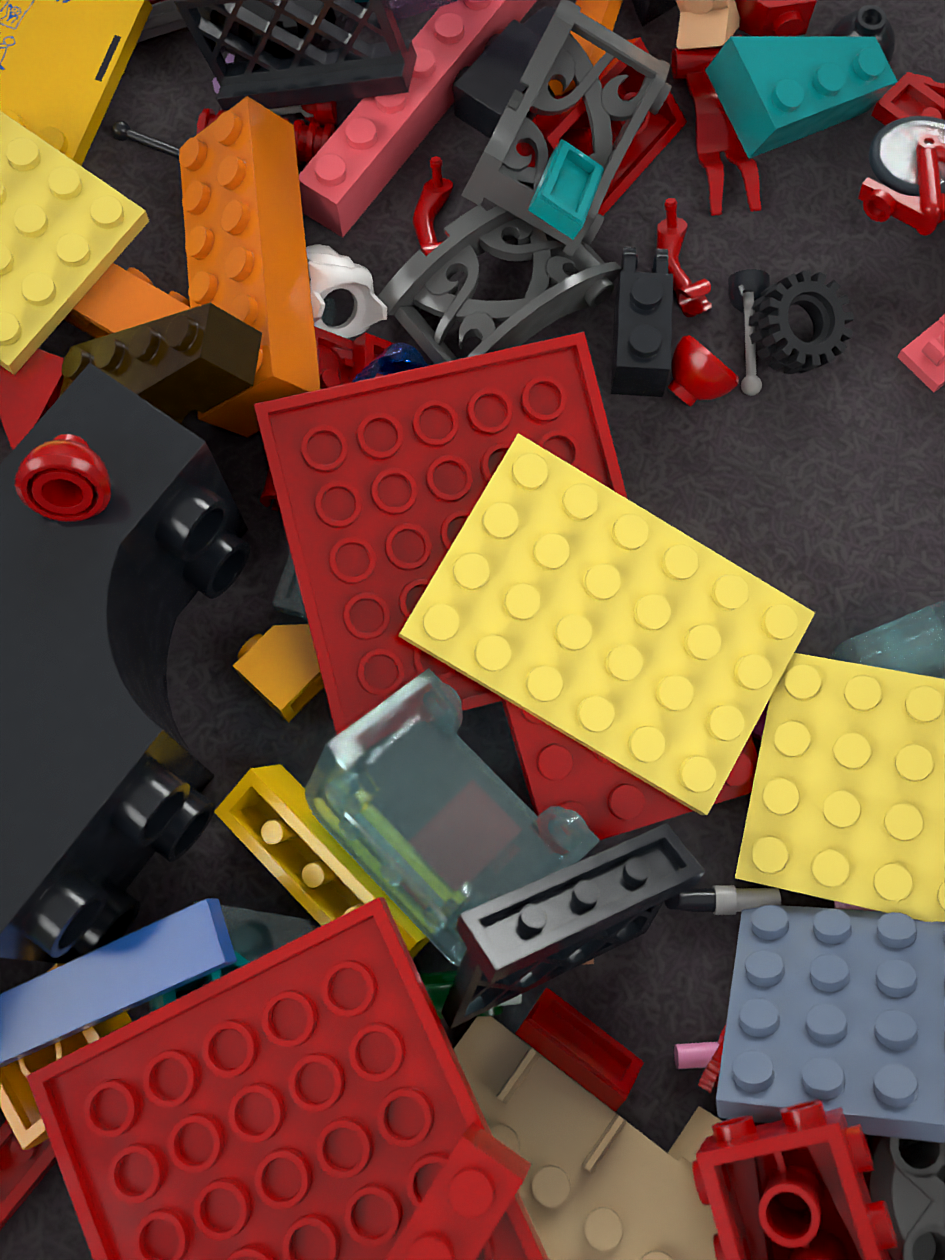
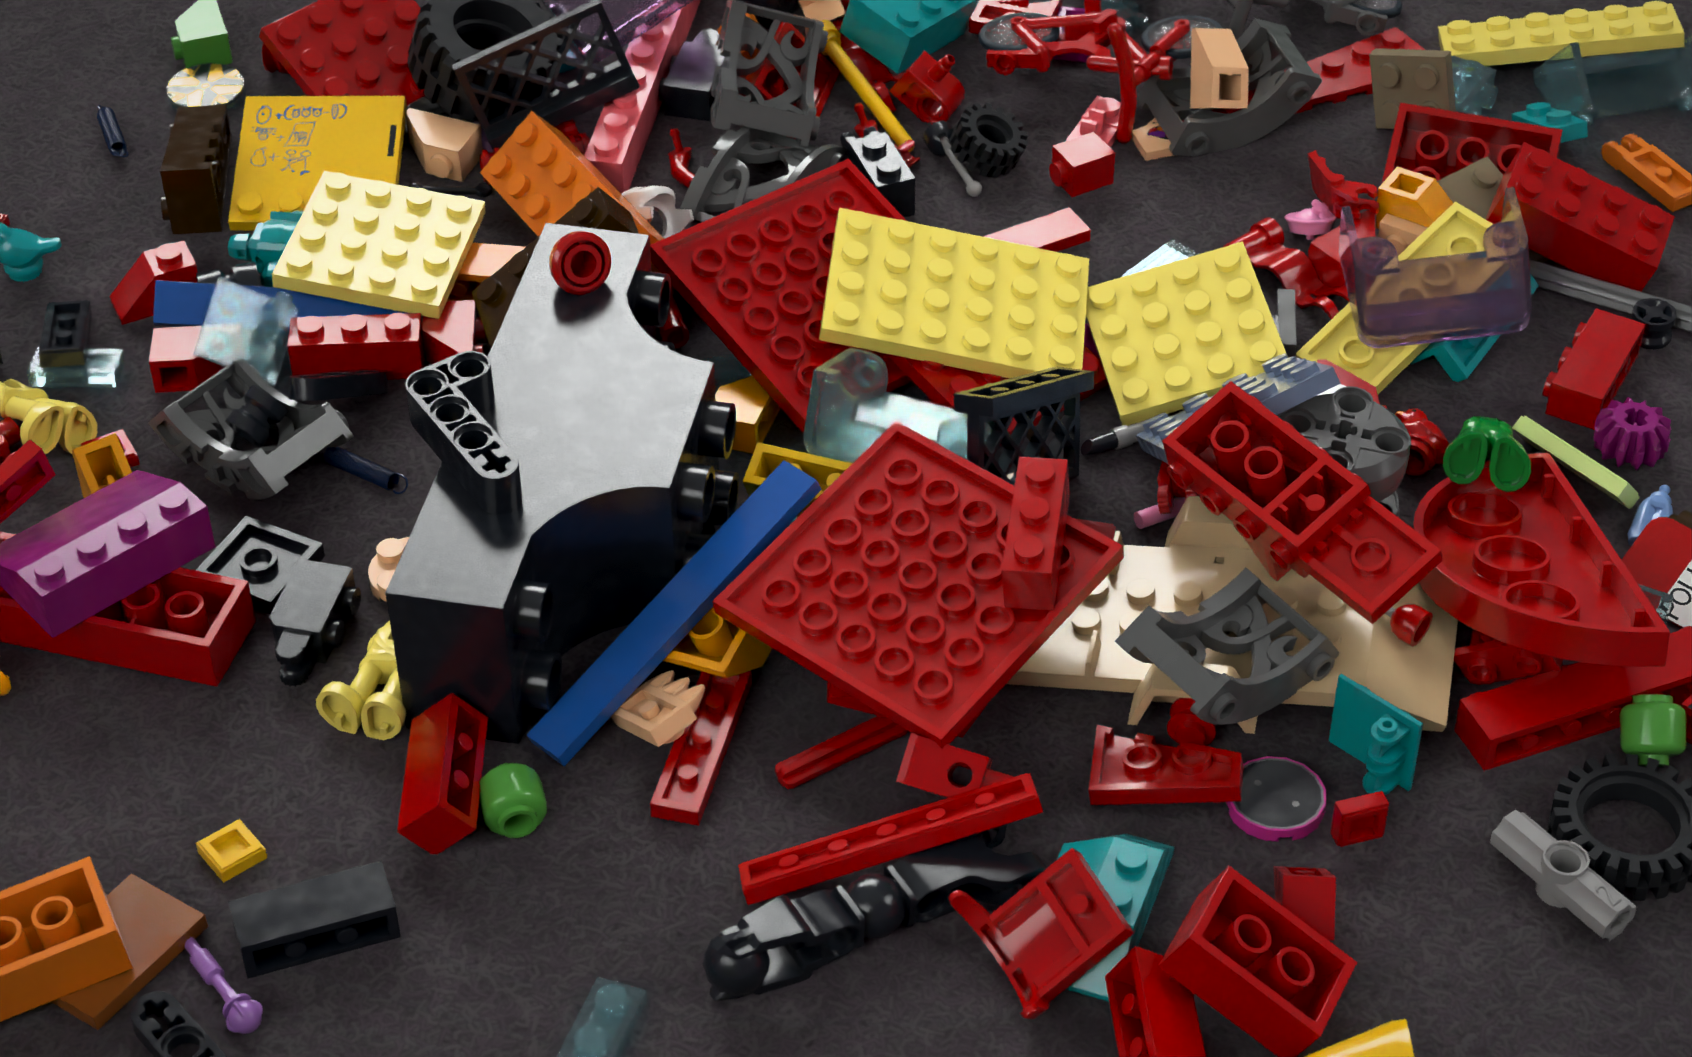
camera: 25 degrees left, 30 degrees down
(174, 77) = (444, 144): none -> light nougat slope
(566, 189) = (788, 99): teal tile -> none
(685, 77) = (862, 86): none -> yellow piece
(699, 373) = (936, 184): red brick -> none
(769, 206) = (930, 88): none -> red piece
(771, 504) = (1049, 232): none -> tile
(898, 407) = (1082, 164): none -> red brick

